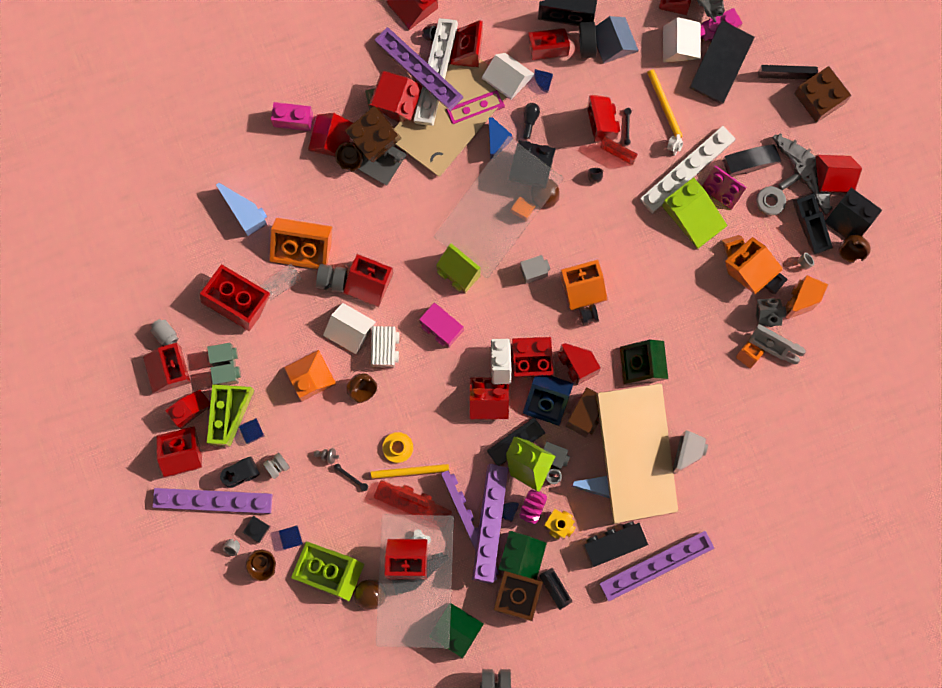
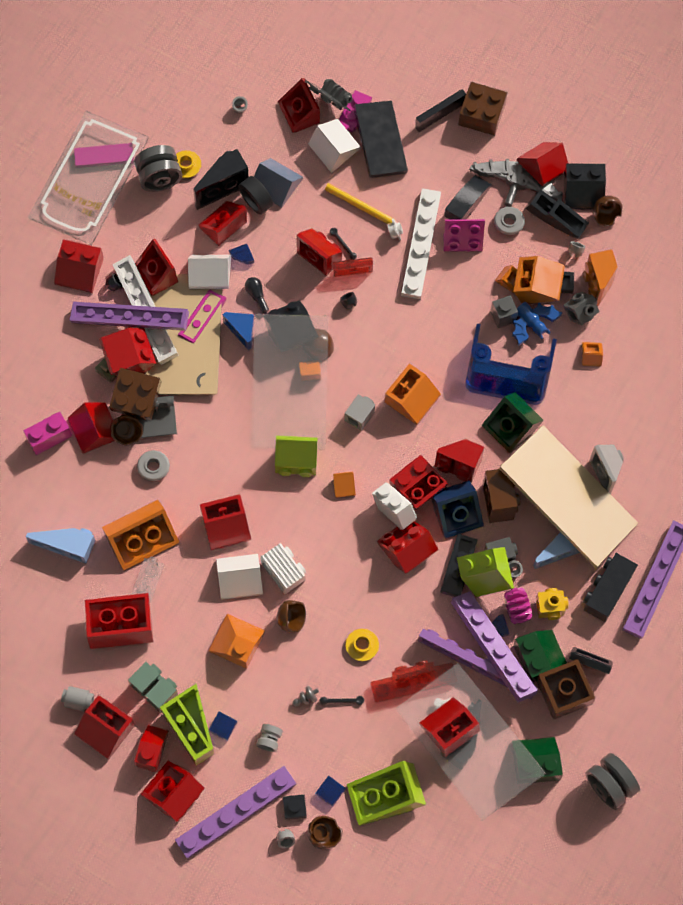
camera: 40 degrees left, 10 degrees down
(241, 471) = (243, 766): black piece -> none
(331, 278) = (191, 543): dark grey wheel -> none
(350, 188) = (153, 456): none -> light grey piece
(367, 594) = (437, 787): reddish brown hair -> none
(409, 471) = (388, 657): yellow bar -> none
(441, 325) = (318, 514): dark pink brick -> none
(479, 316) = (344, 484): none -> orange slope
(588, 314) = (435, 416): black wheel -> none
(663, 325) = (502, 379): none -> clear blue windscreen
(694, 213) = (455, 273): lime slope -> none
(707, 271) = (504, 311): none -> dark grey brick
(724, 290) = (530, 318): none -> blue animal
(776, 345) = (607, 330): light grey hinge -> none

